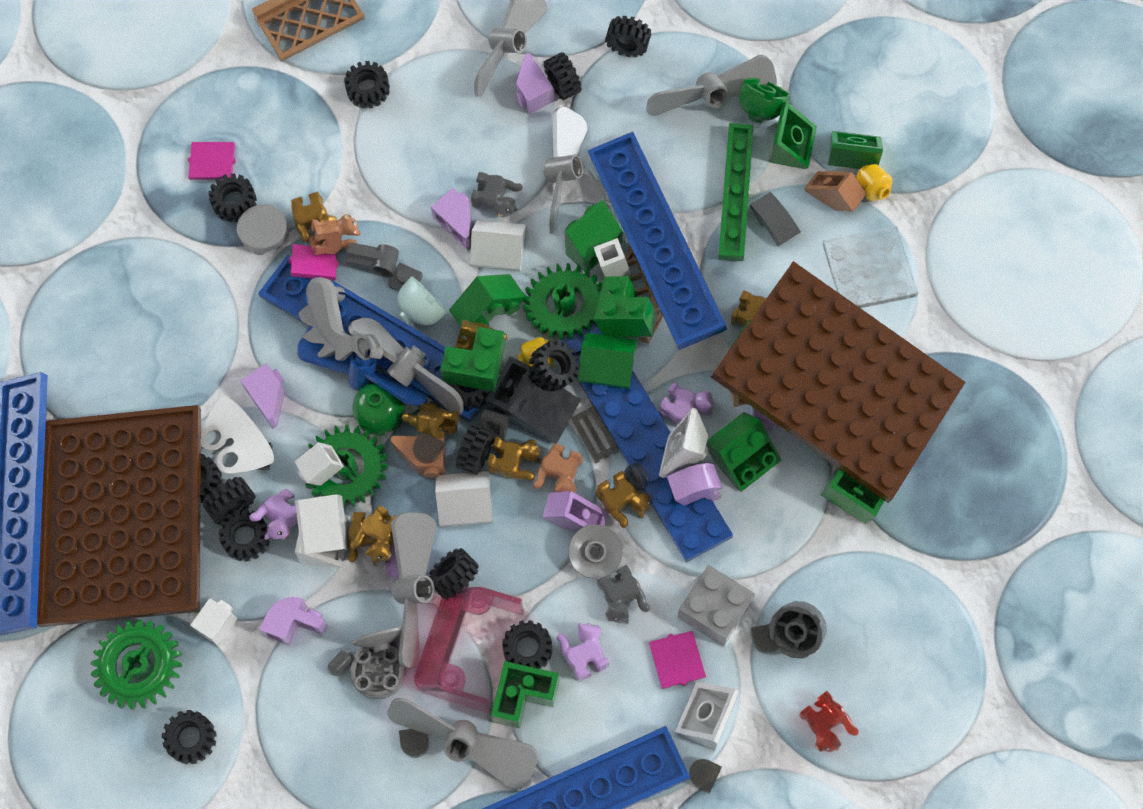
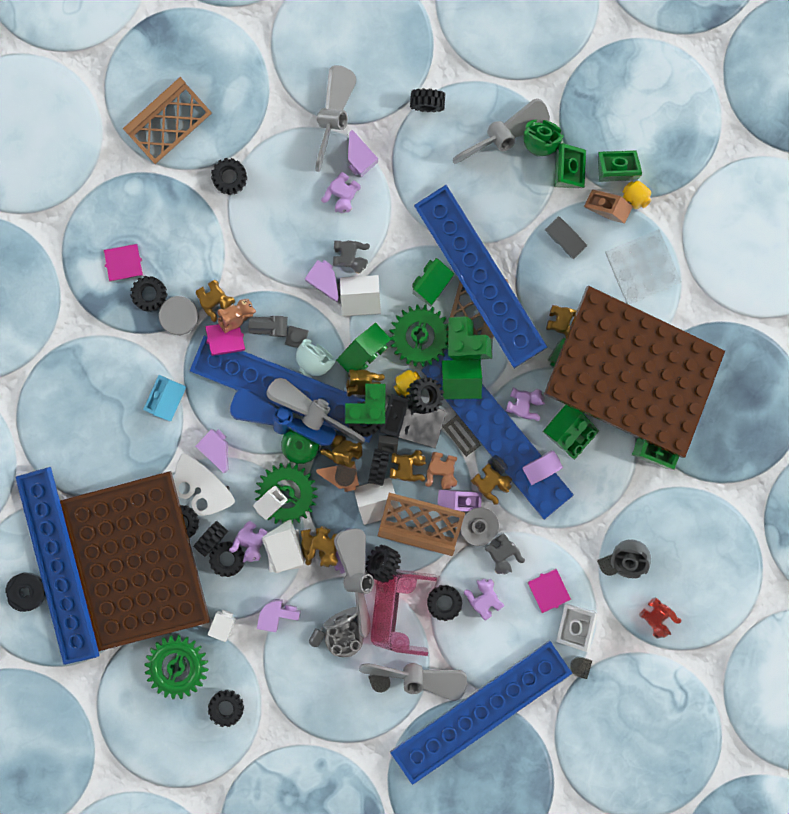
camera: 10 degrees left, 20 degrees up
(219, 322) = (164, 398): none -> medium azure panel
(327, 329) = (246, 387): light grey animal -> none
(503, 121) = (343, 191): none -> lavender animal
(506, 549) = (417, 535): none -> medium nougat fence
(519, 685) = (446, 633): green brick -> none
(562, 76) = (382, 145): black tyre -> none
(565, 165) = (396, 192): light grey piece -> none
(612, 259) = (451, 300): white brick -> none
(685, 445) = (530, 441): white slope -> none
(716, 605) = (570, 550): light grey brick -> none
(736, 192) = (533, 219): green plate -> none

